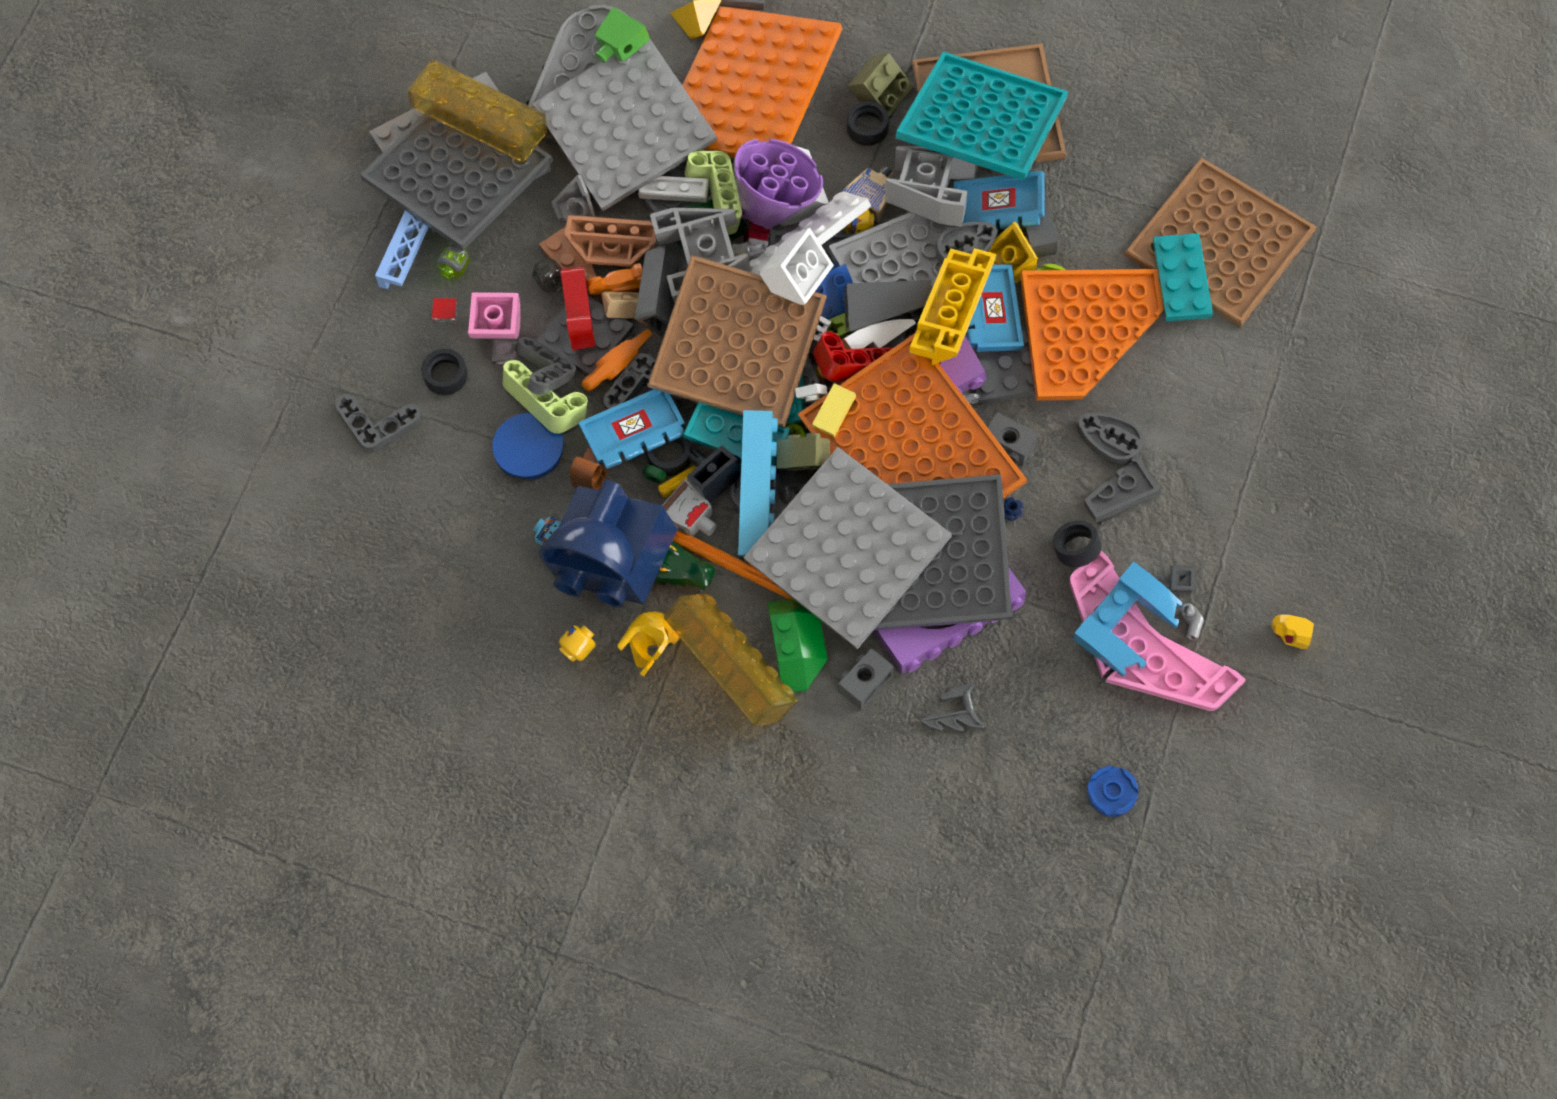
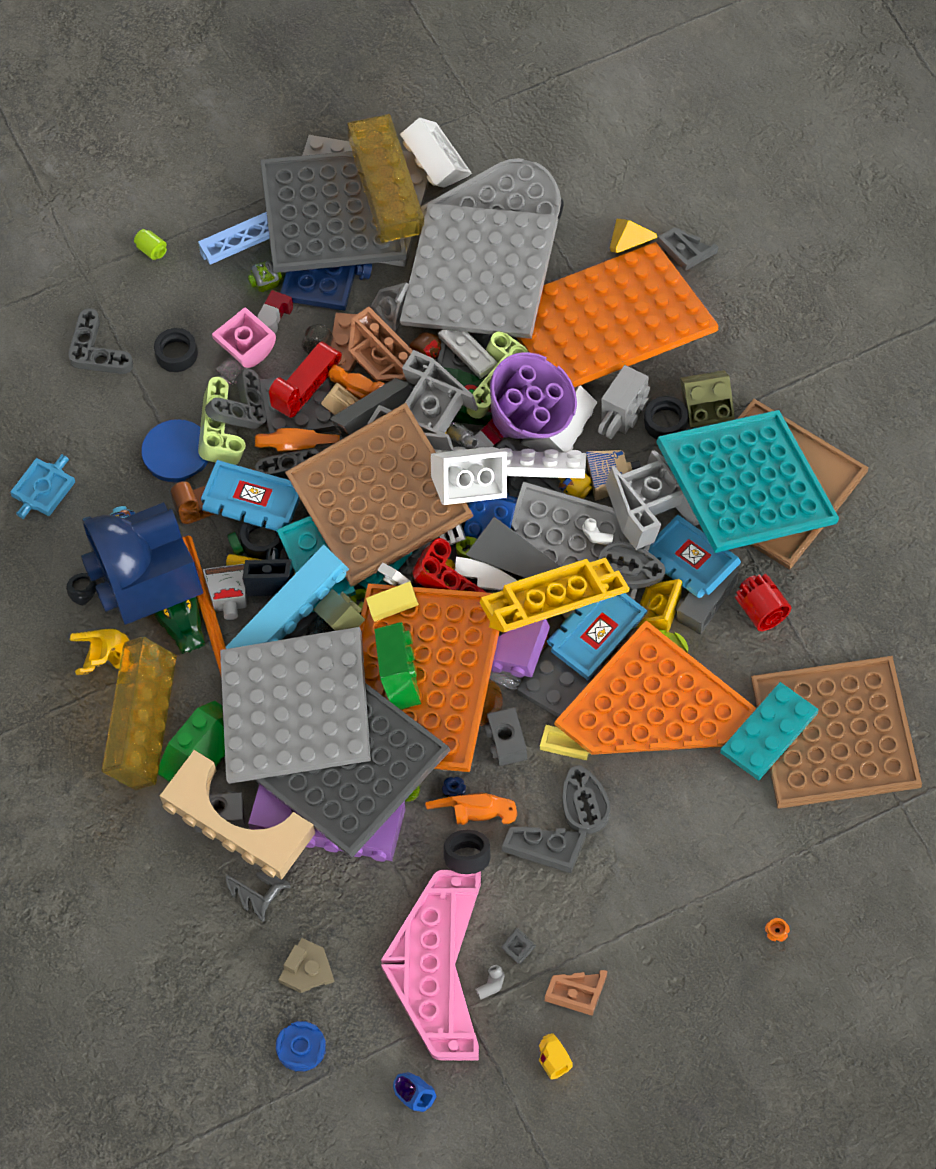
camera: 45 degrees right, 5 degrees down
(334, 309) = (150, 244): none -> lime brick
(444, 310) = (223, 306): red tile -> none
(454, 560) = (42, 487): none -> dark azure plate
(487, 274) = (274, 308): none -> leg
(489, 68) = (434, 153): none -> white slope
(505, 236) = (320, 286): none -> dark blue plate
(526, 197) = (364, 271): none -> dark blue plate
(577, 617) = (81, 597): none -> black piece
(577, 643) = (58, 613): yellow head -> none
(619, 36) = (529, 201): bright green torso -> none
(637, 210) = (427, 344): none -> reddish brown head
(830, 132) = (624, 402): none -> light grey brick
(846, 685) = (270, 848): none -> tan arch
(894, 448) = (397, 665): none -> green wedge
(913, 240) = (593, 533): none -> white arm
(1046, 506) = (477, 807): none -> orange animal
(1048, 411) = (558, 742): none -> light yellow tile
(1054, 731) = (306, 967): none -> dark tan plate
(1079, 191) = (762, 602): none -> red gear
(1096, 631) = (468, 917): dark azure wedge -> none
(1228, 746) = (414, 1091): none -> blue rock
(1256, 572) = (576, 991): none -> nougat wing
(1339, 403) = (777, 923): none -> orange plate

